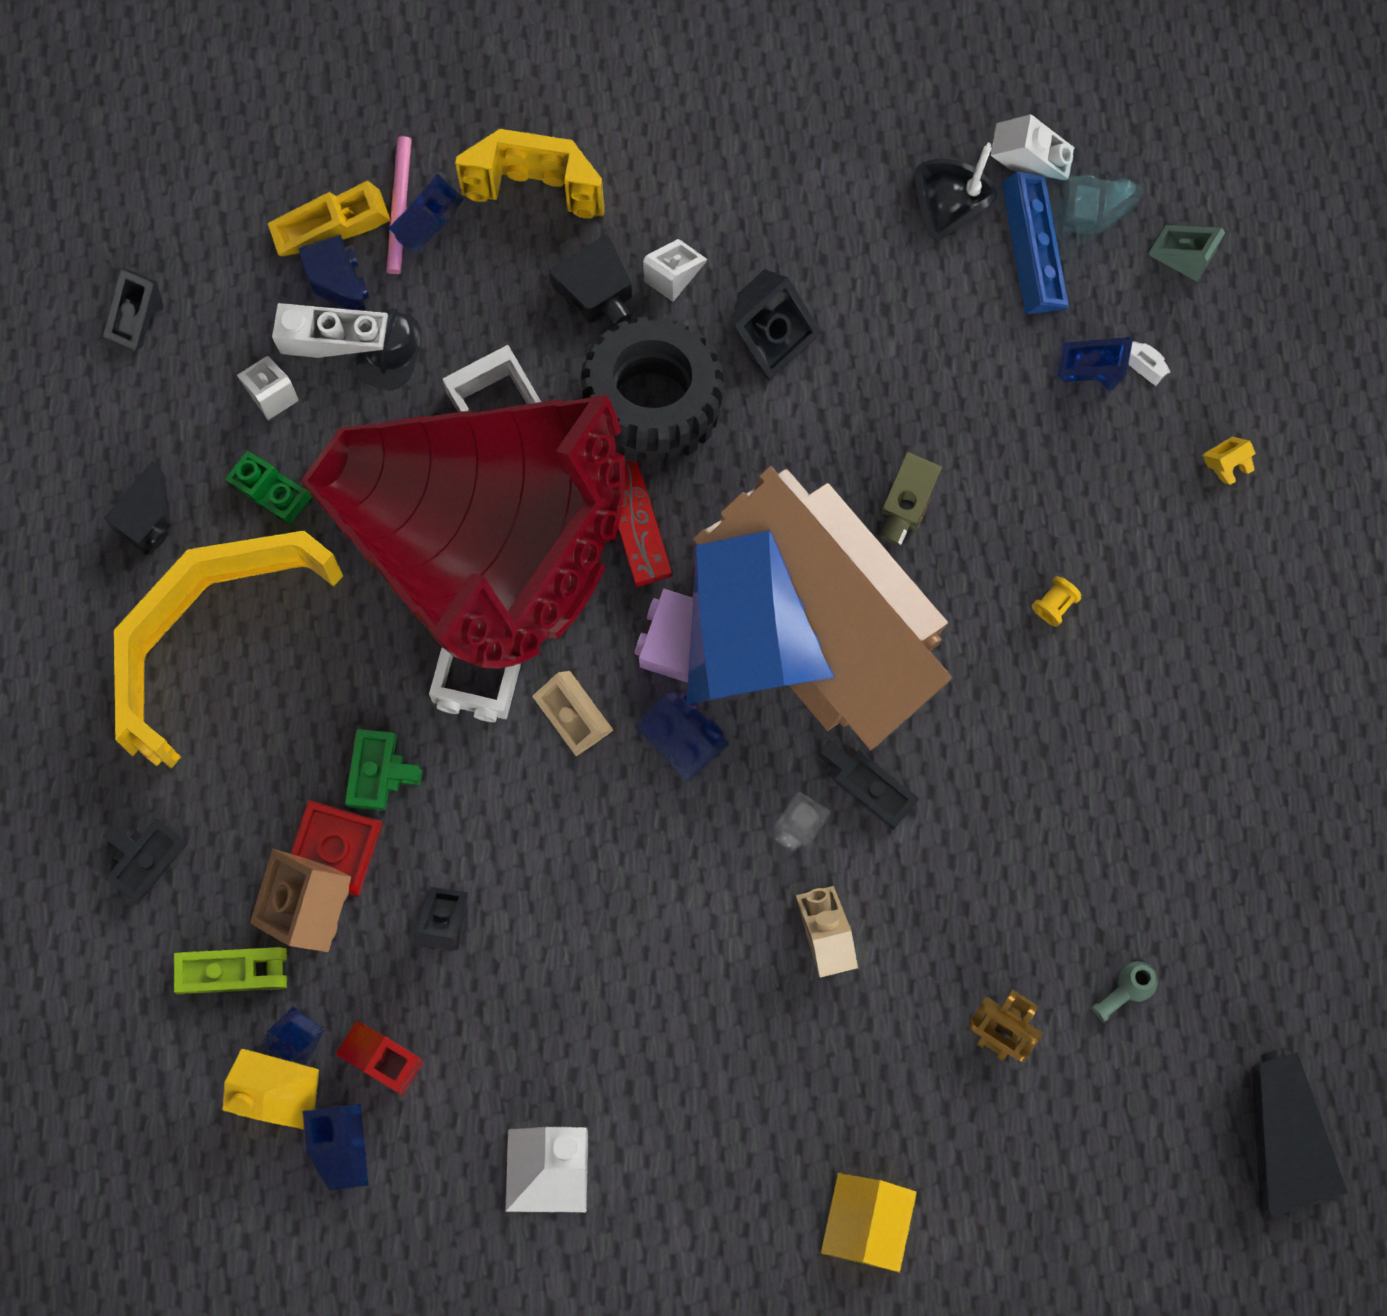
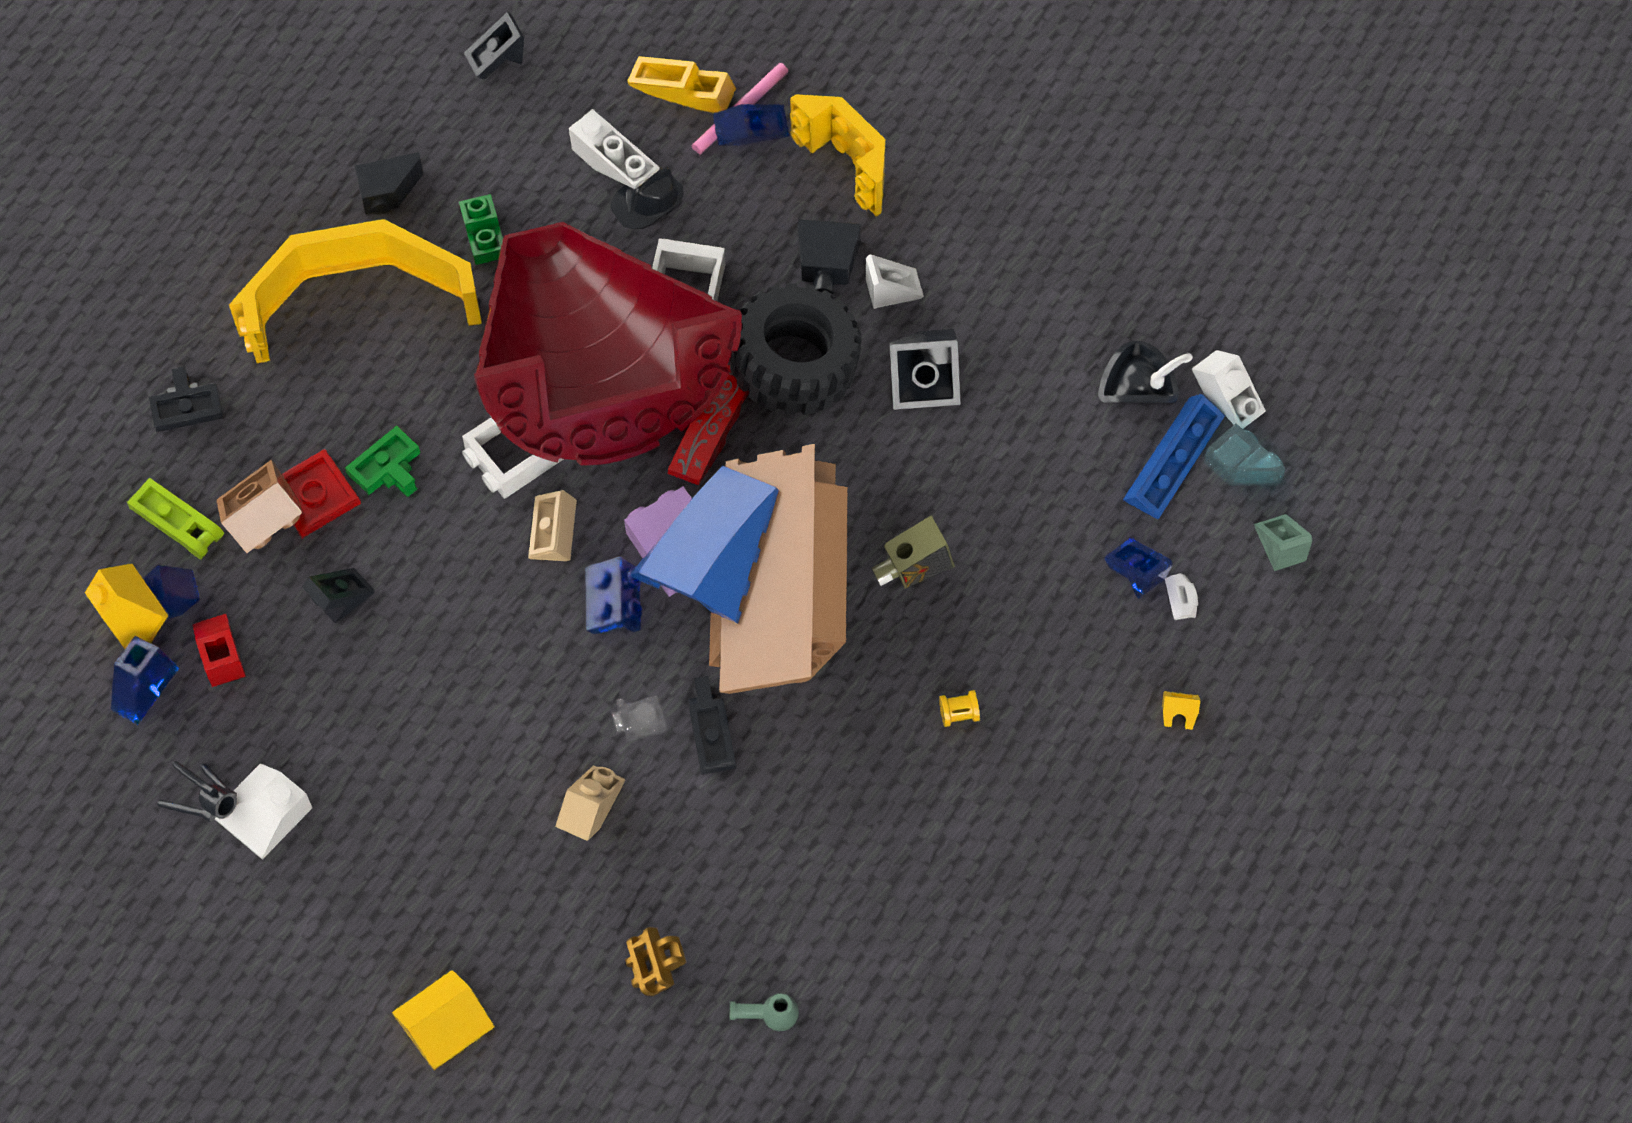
camera: 40 degrees right, 10 degrees down
(268, 387) = (541, 164): white slope -> none
(331, 273) = (651, 119): clear blue slope -> none
(509, 1198) = (215, 799): none -> black plant

